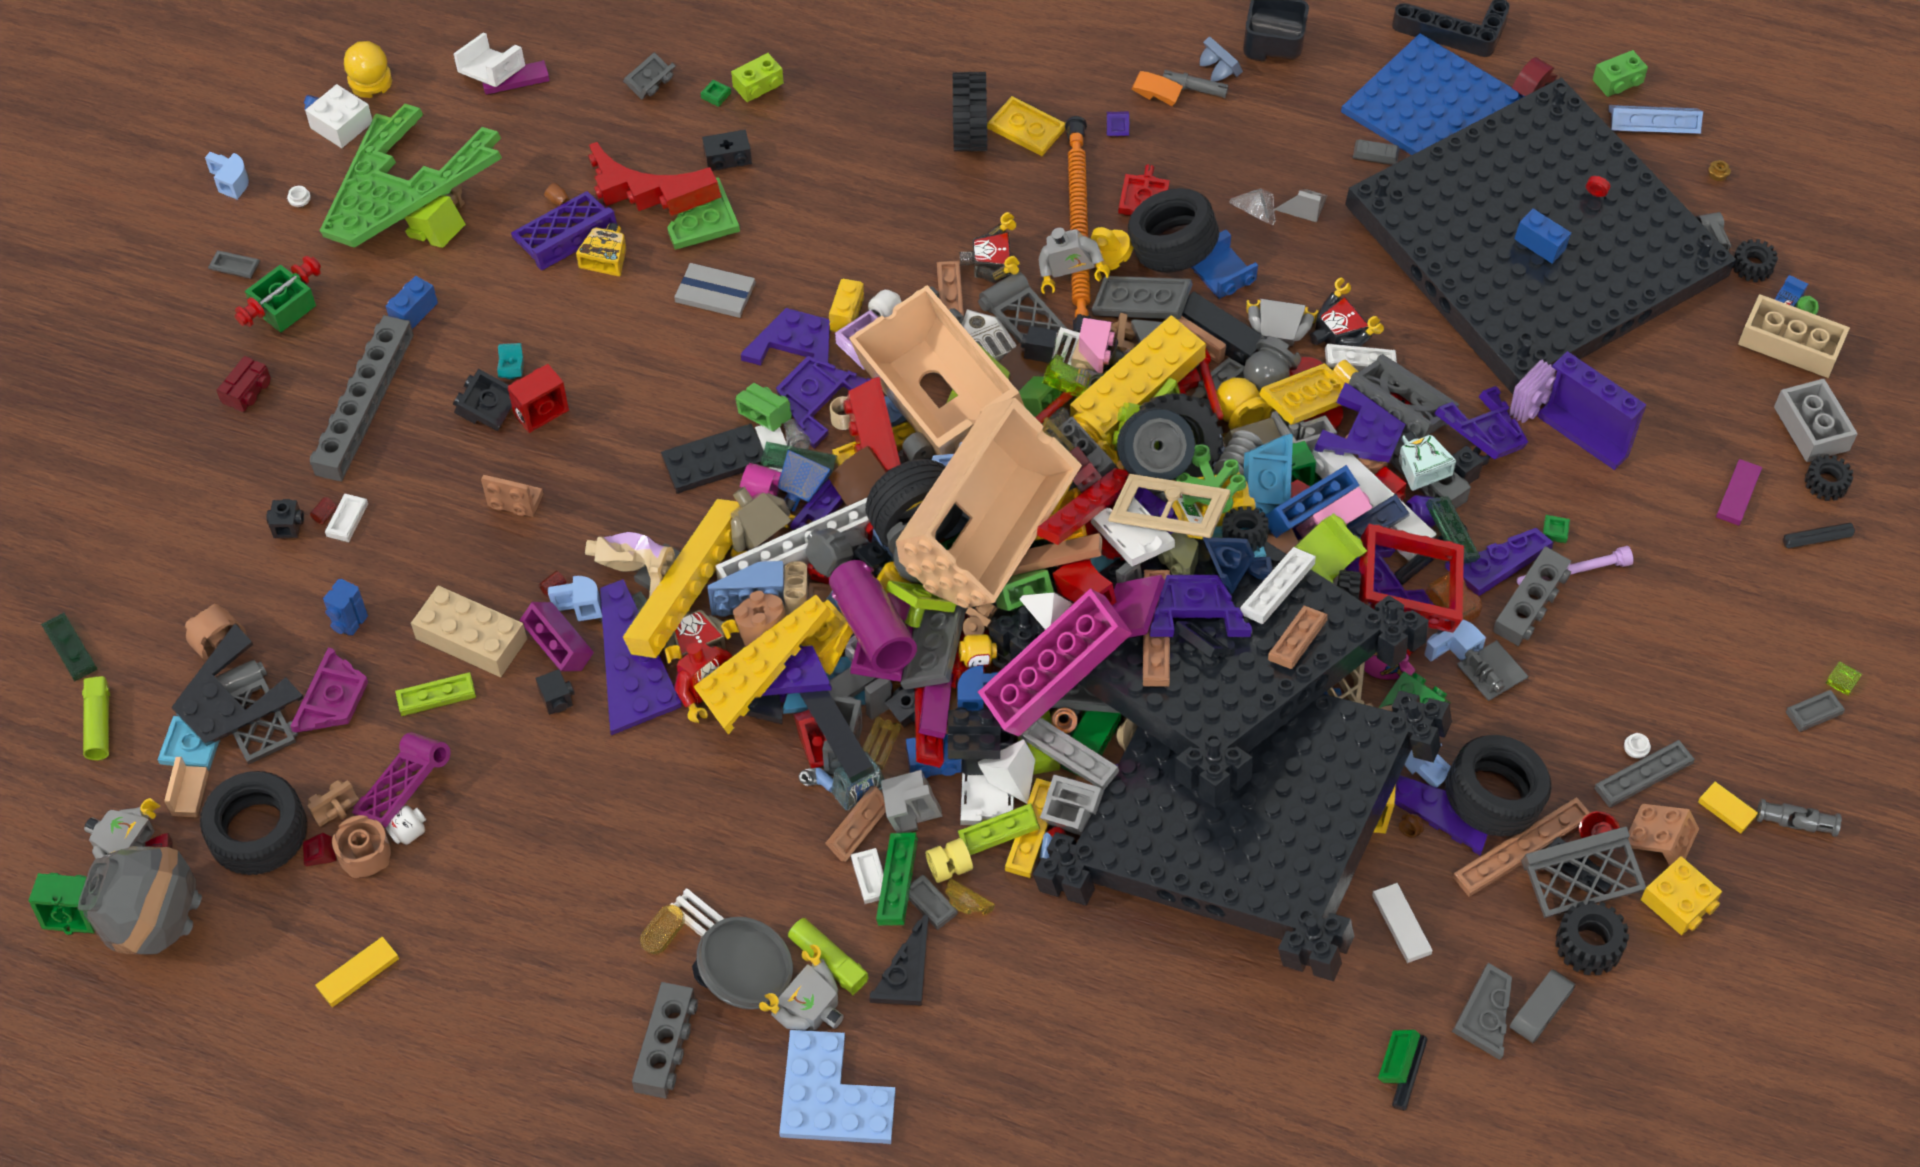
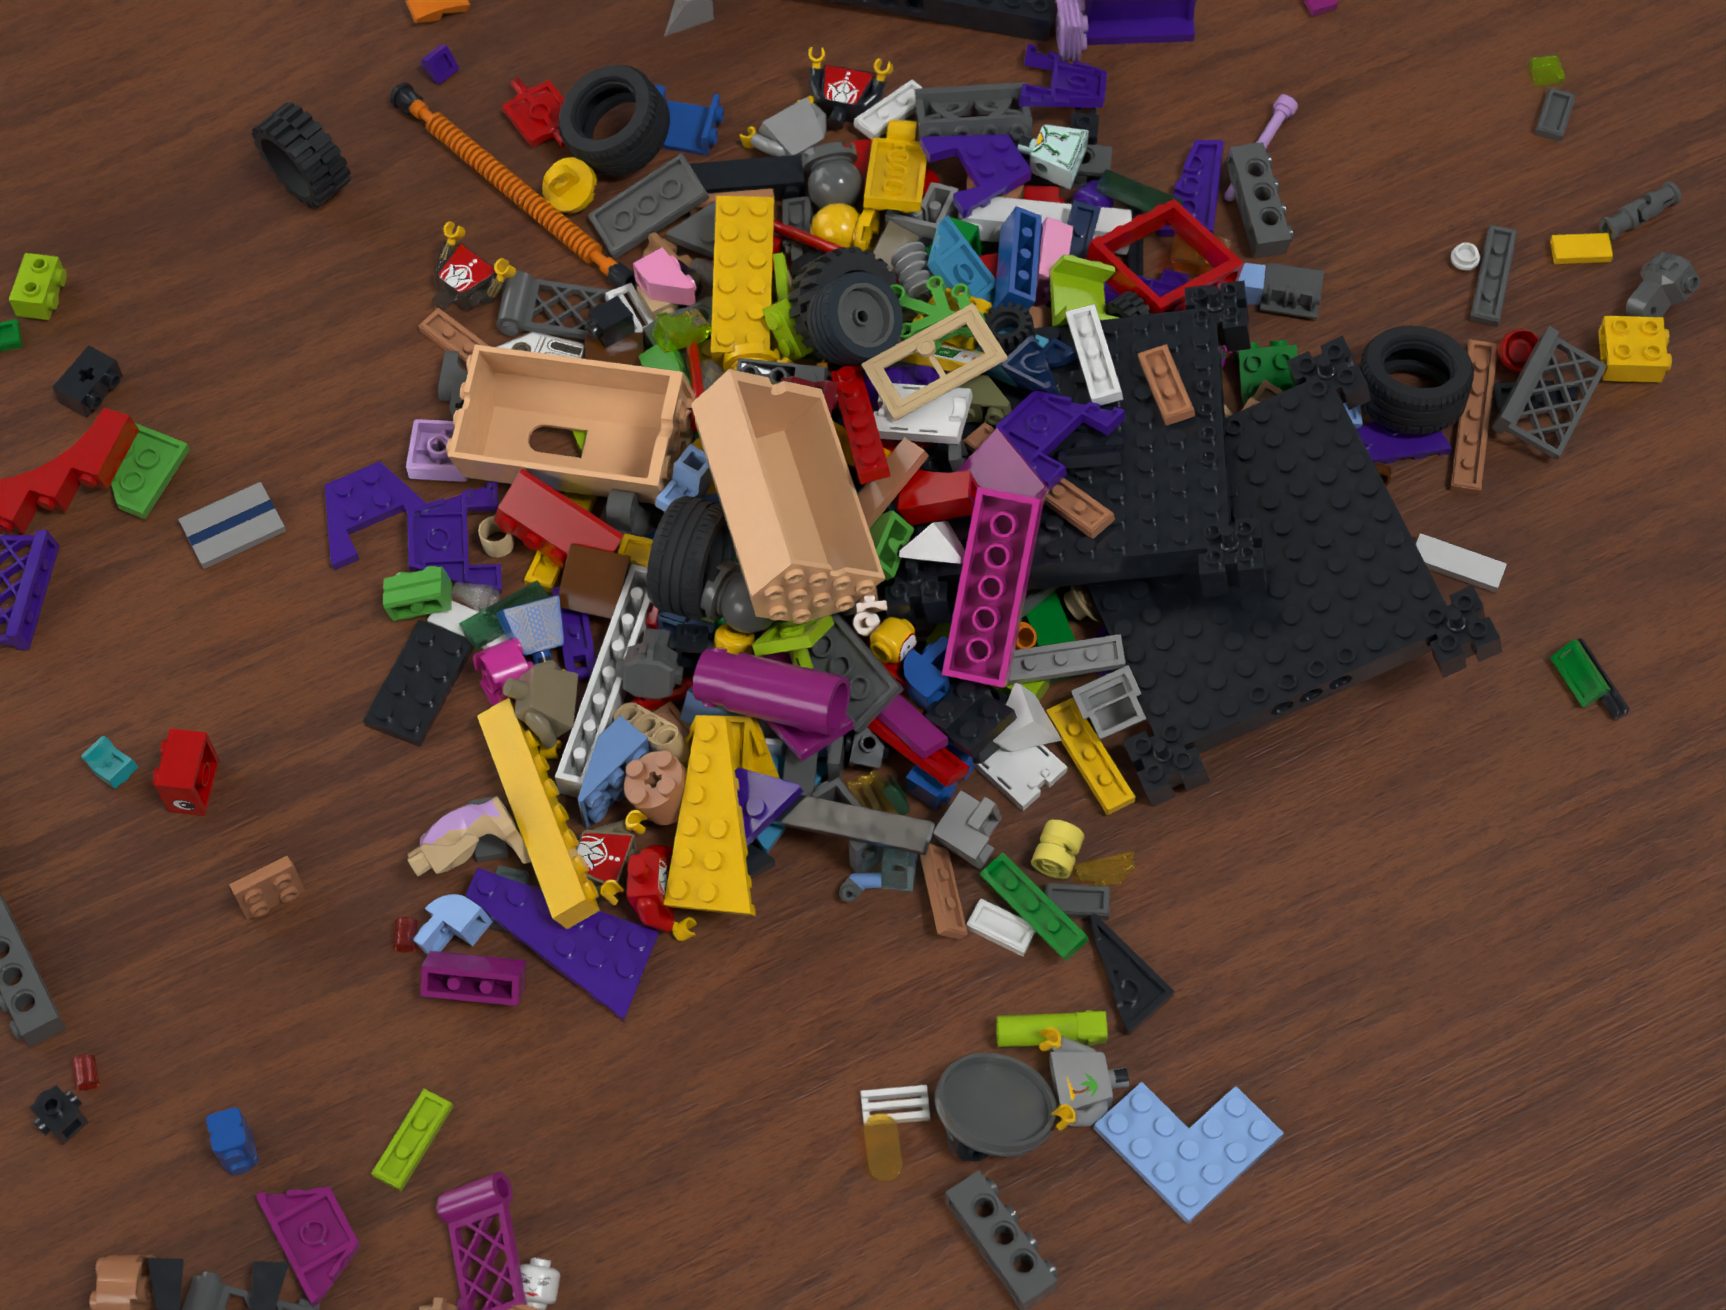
camera: 45 degrees left, 5 degrees up
(346, 517) = (116, 1058): white tile -> none
(469, 631) = (379, 1051): tan brick -> none
(484, 400) = (129, 821): black plate -> none
(555, 691) = (530, 1030): black brick -> none
(603, 250) = (77, 577): yellow torso -> none
(810, 737) = (815, 853): red slope -> none
(846, 304) = (383, 434): yellow brick -> none
(884, 302) = (421, 403): white head -> none
(884, 741) = (895, 794): none -> clear green tile
(999, 829) = (1067, 781): lime tile -> none
(1026, 126) = (361, 129): yellow tile -> none
(1047, 837) = (1118, 753): medium blue arm -> none
(1068, 254) = (544, 218): light grey torso -> none
(1257, 203) = (651, 42): clear slope -> none
(1485, 1012) = (1598, 579): dark grey wing -> none
(1542, 1006) = (1633, 532): dark grey beam -> none
(1556, 528) = (1206, 127): green tile -> none
(1595, 919) = (1612, 423): black tyre -> none
(1663, 830) = (1561, 307): nougat bracket -> none
(1753, 874) = (1666, 282): none -> dark grey piece

